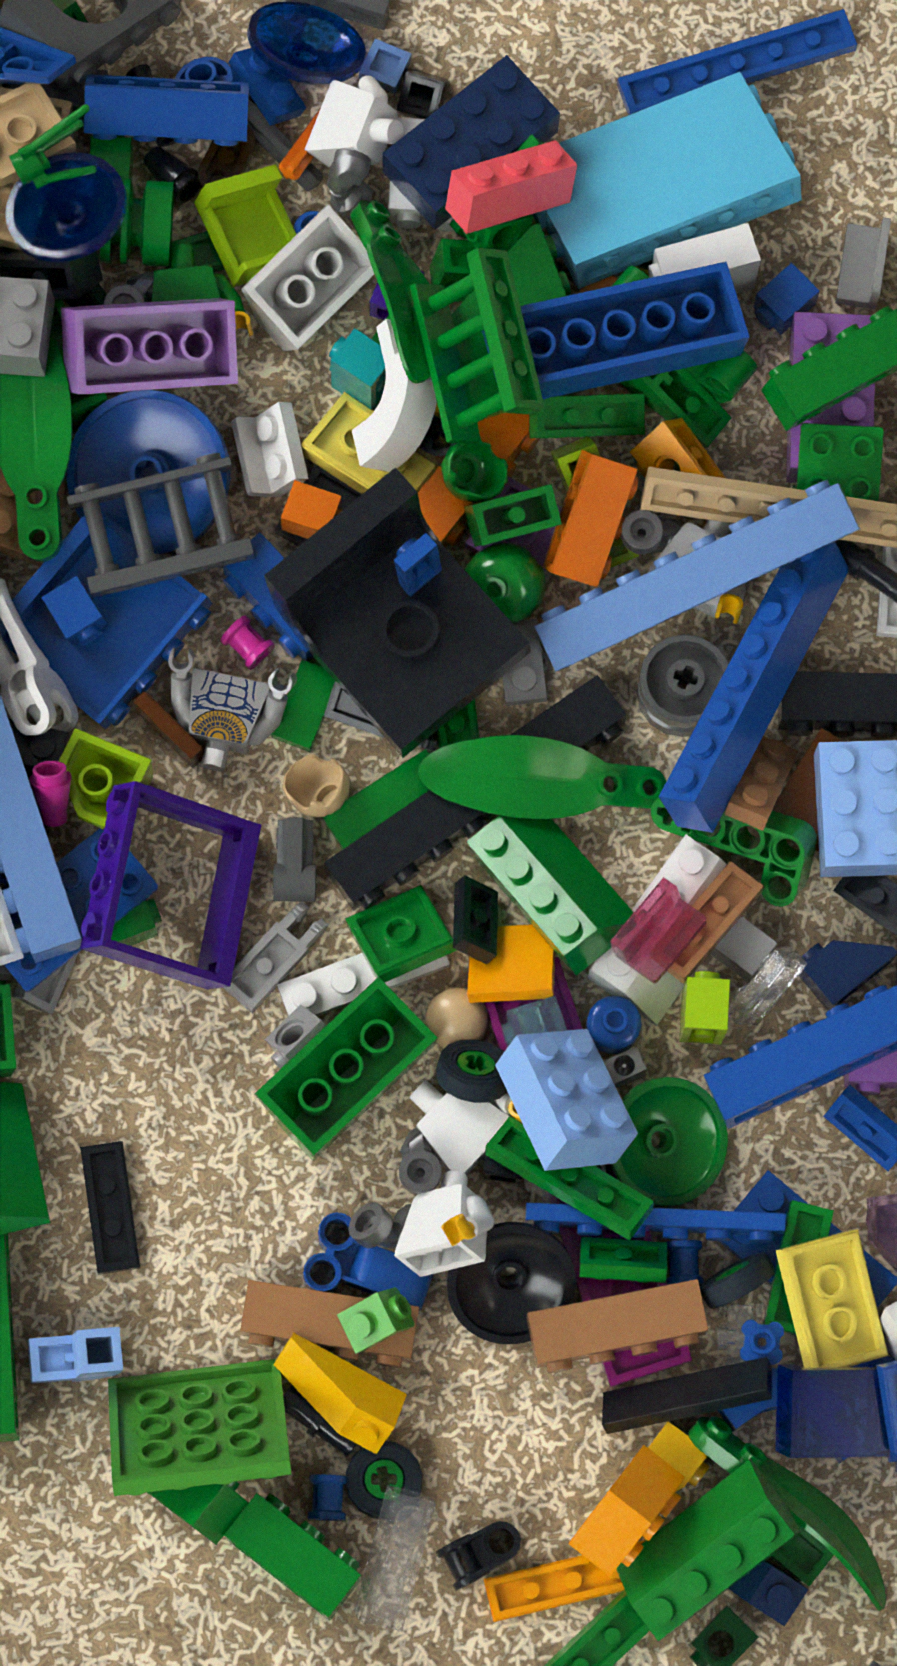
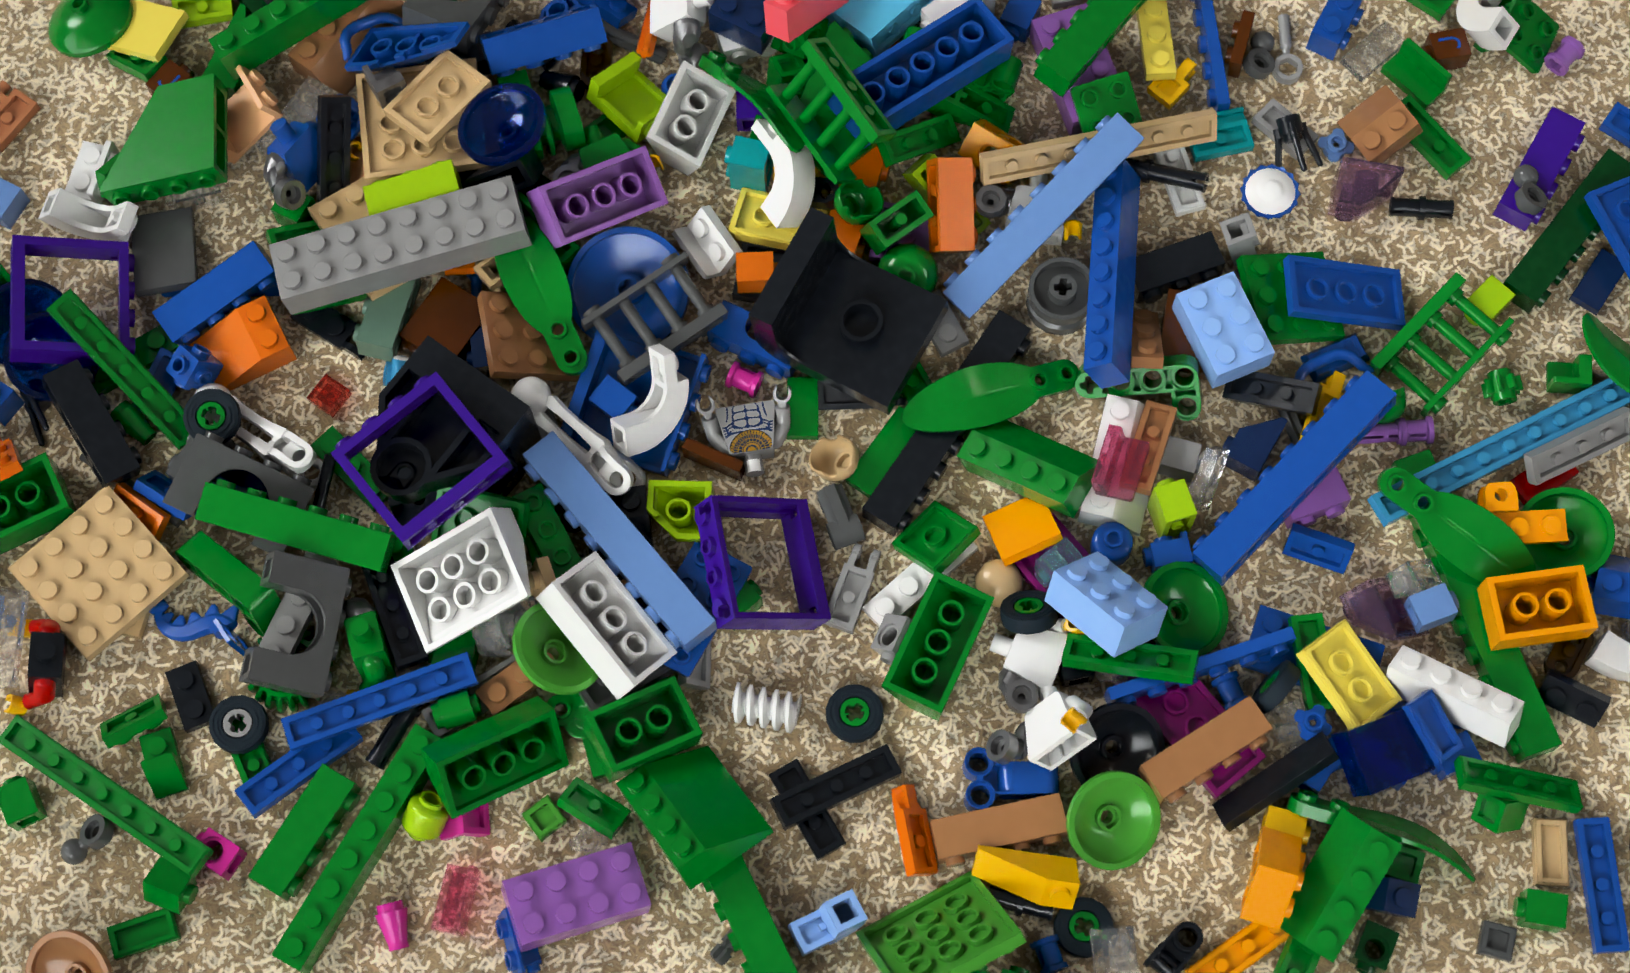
camera: 15 degrees left, 5 degrees down
(32, 162) = (466, 100): green plant -> none
(51, 789) = (651, 525): dark pink cone -> none
(107, 1065) = (765, 708): none -> white piece
(120, 649) = (659, 412): none -> white arch
(153, 1194) = (835, 787): none -> black plate
(210, 1134) = (858, 729): none -> black bush
(225, 1286) = (913, 832): none -> orange hinge
(376, 1319) = (1034, 812): bright green bracket -> none
(417, 563) = (849, 271): blue plate -> none
(475, 919) = (985, 508): black plate -> none
(476, 1388) = (1128, 828): none -> bright green dish
(623, 1259) = (1189, 703): green plate -> none
(625, 1067) = (1135, 567): light grey piece -> none
(679, 1060) = (1167, 550): none -> blue brick

